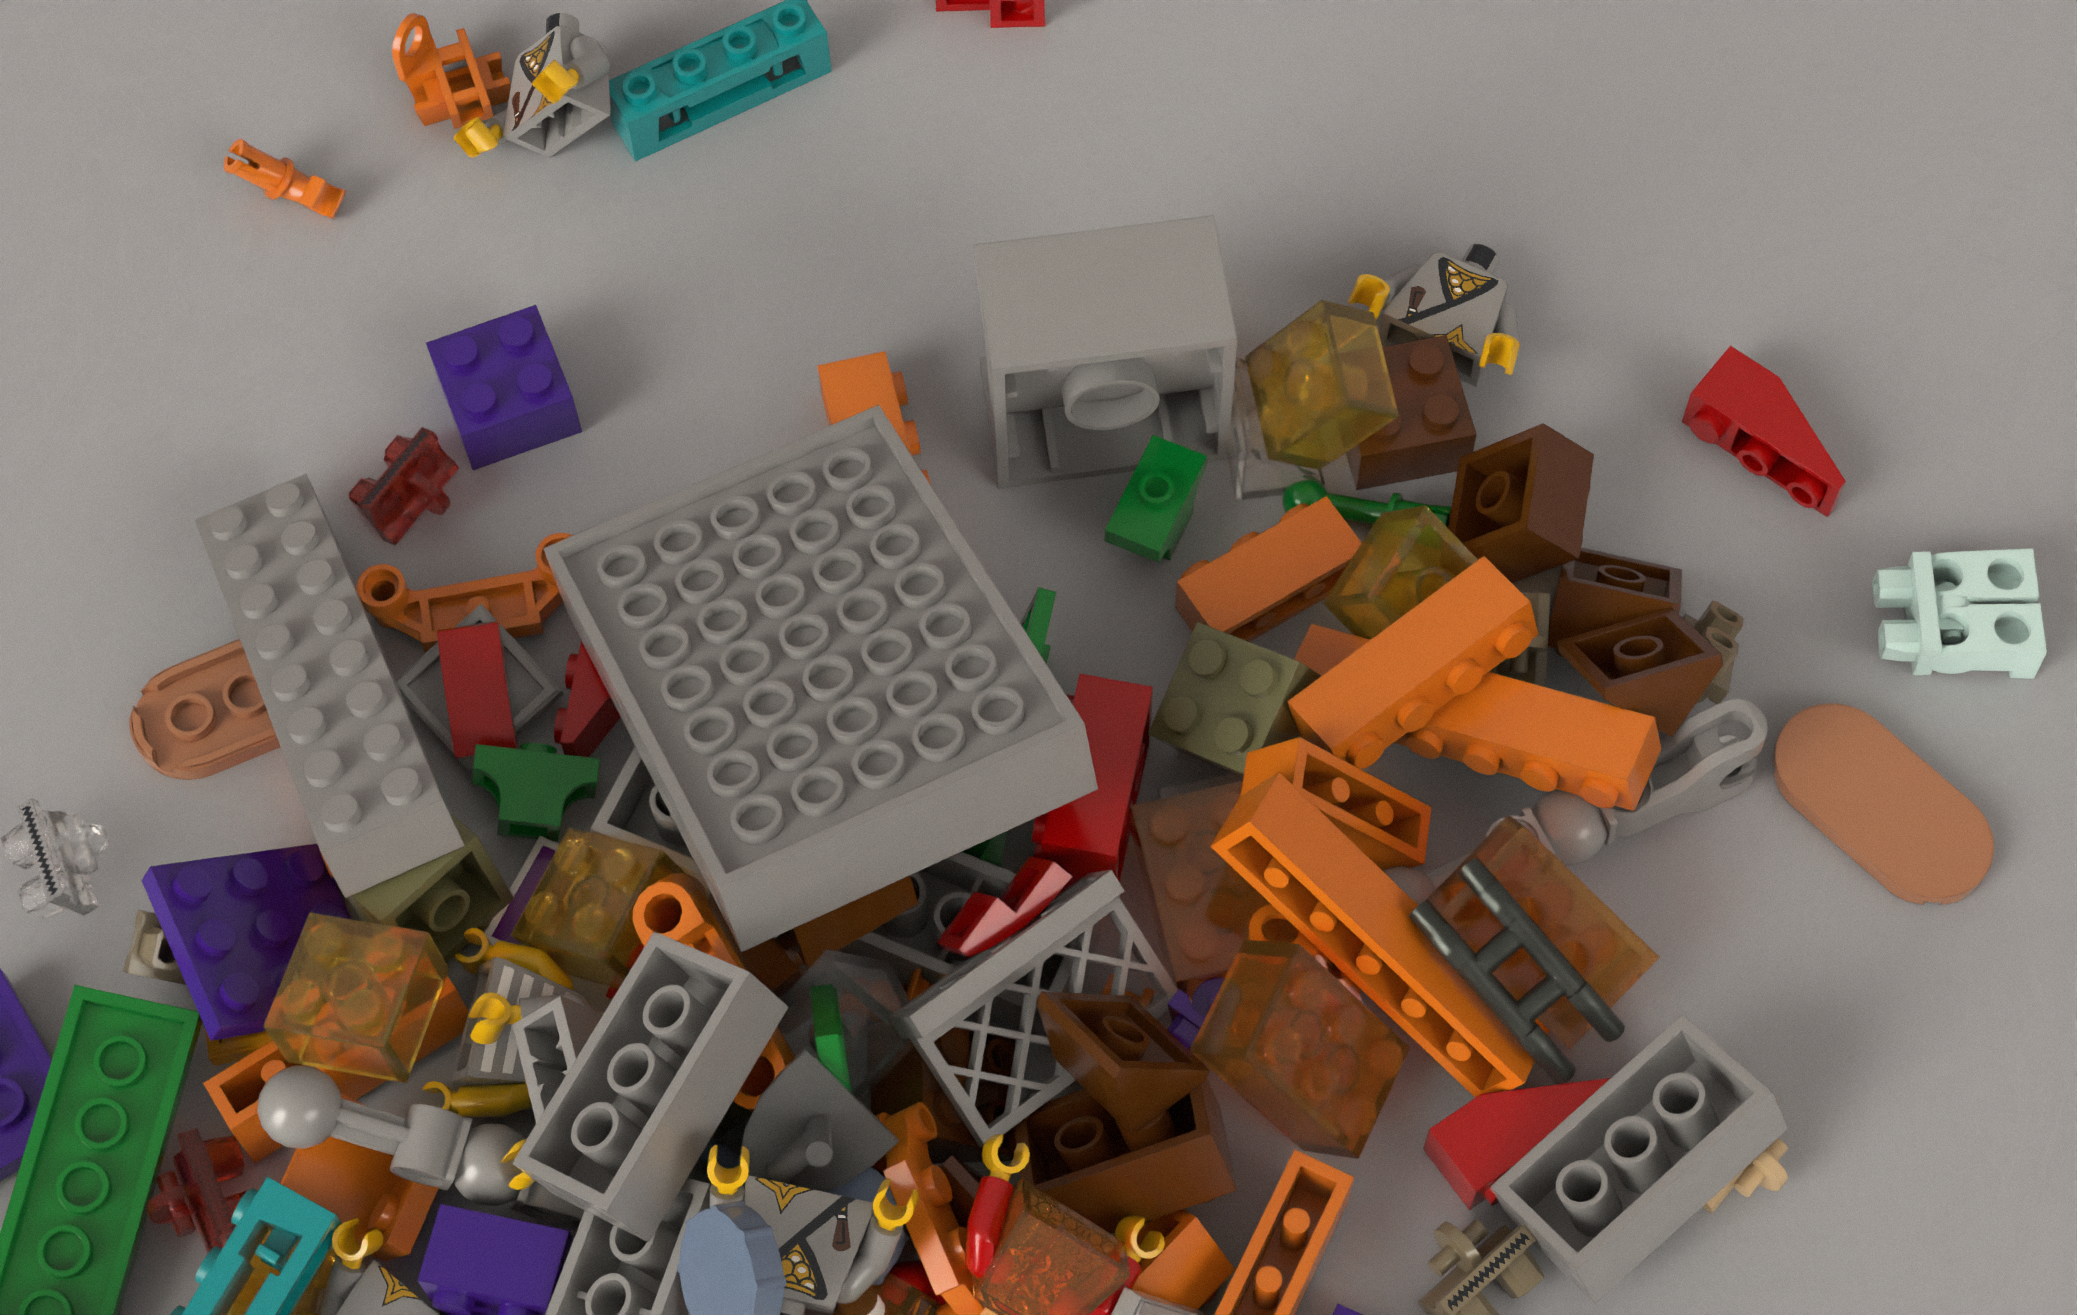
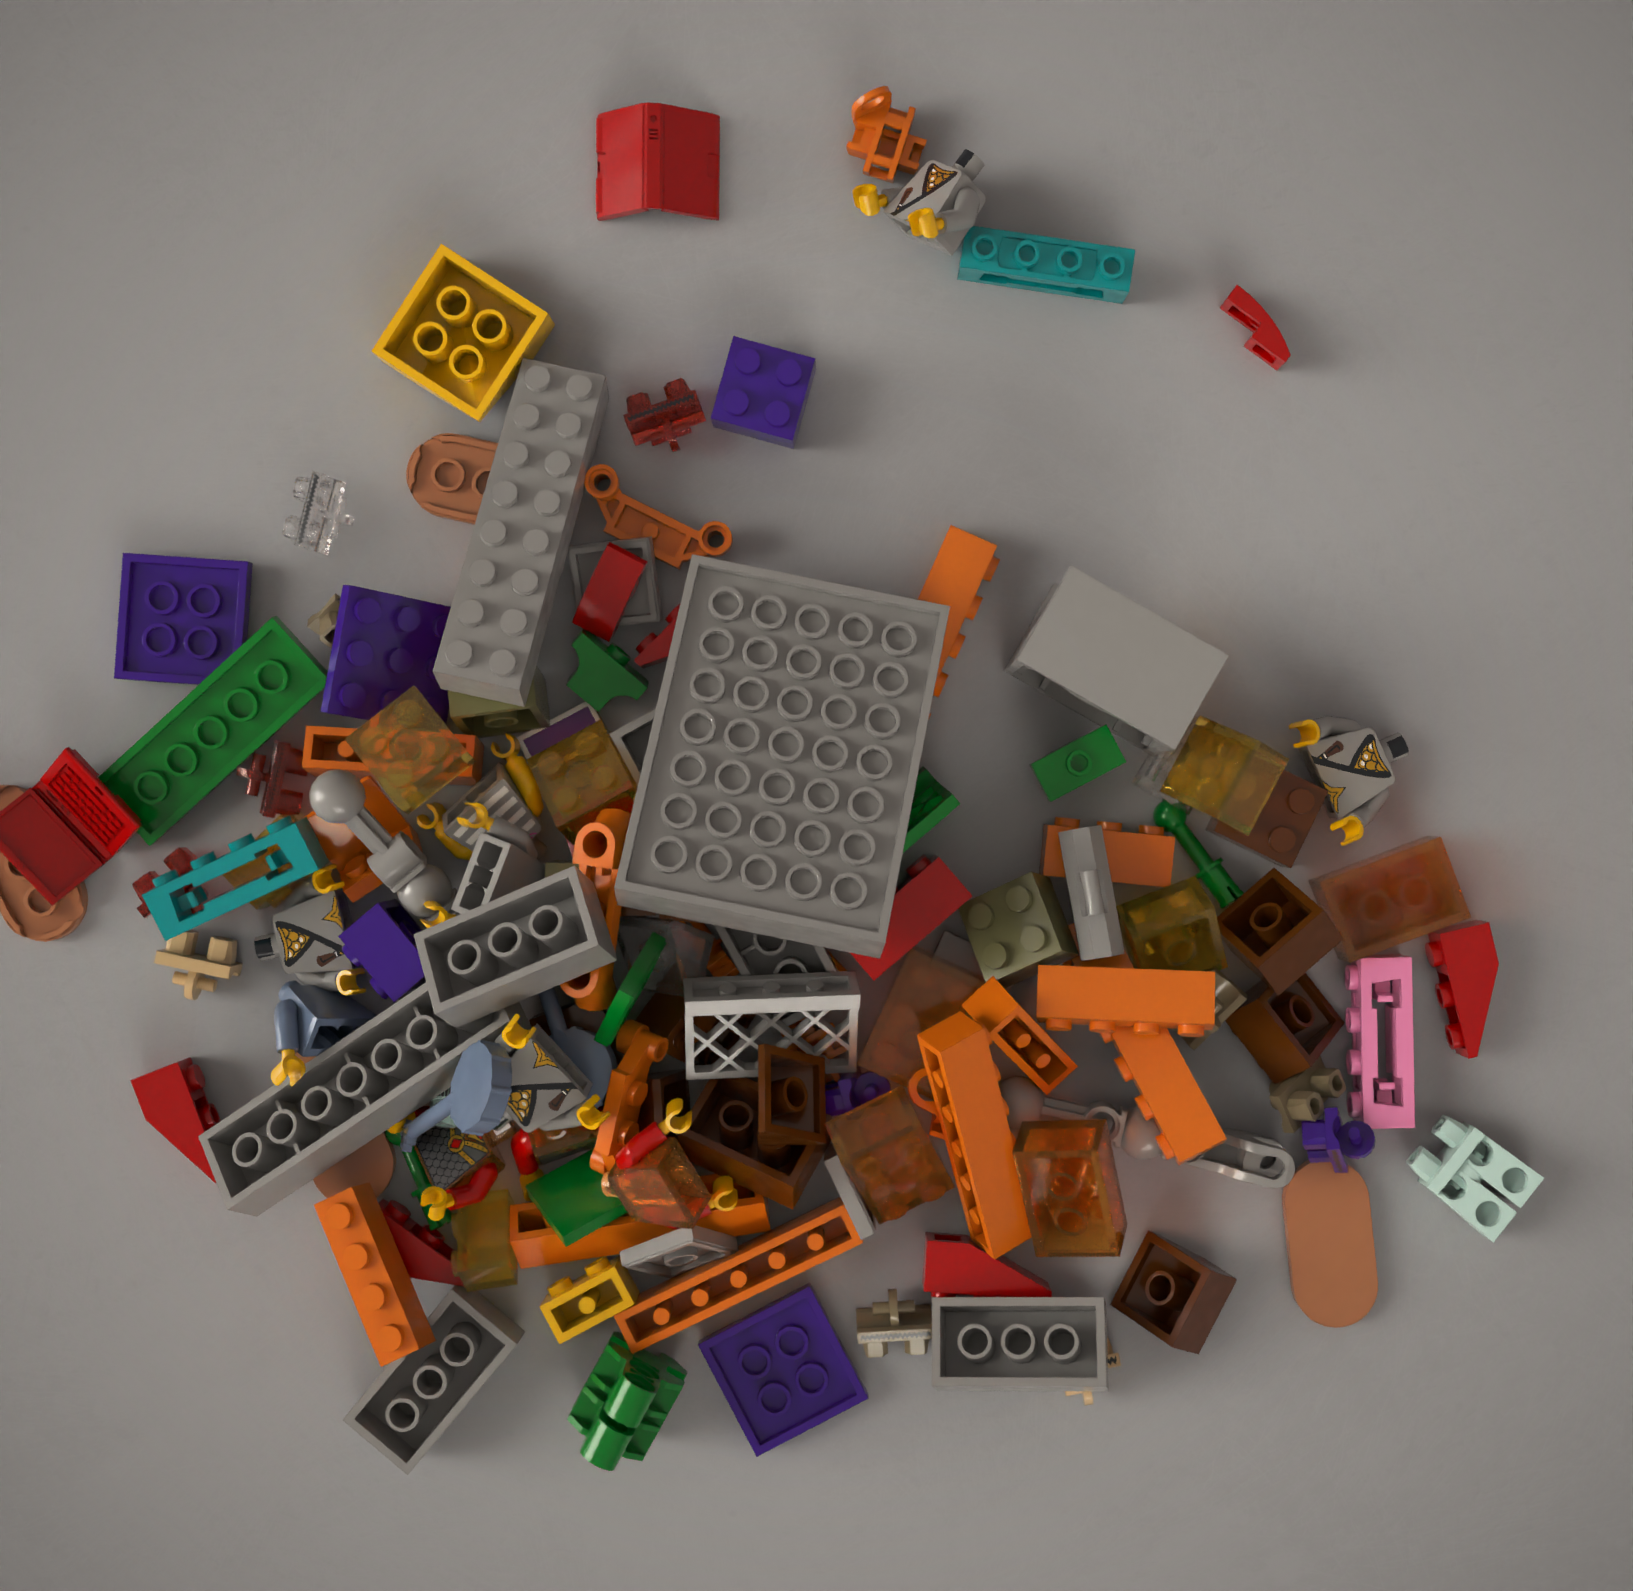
camera: 35 degrees right, 25 degrees up
(102, 549) = (462, 334): none -> yellow slope
(203, 246) = (657, 161): none -> red piece
(283, 180) = (735, 136): orange piece -> none
(812, 1130) = (585, 1026): dark grey shield -> none
(991, 919) = (777, 966): red slope -> none
(1275, 1128) = (854, 1203): none -> light grey tile
(1278, 597) = (1091, 893): none -> light grey piece
(1518, 932) = (1048, 1197): pearl dark grey piece -> none
(1616, 391) = (1391, 897): none -> clear orange brick
(1647, 665) = (1255, 1092): reddish brown slope -> none
(1736, 551) = (1391, 981): none -> bright pink brick
(1764, 981) = (1173, 1293): none -> reddish brown slope
(1777, 673) = (1330, 1140): none -> dark purple hips

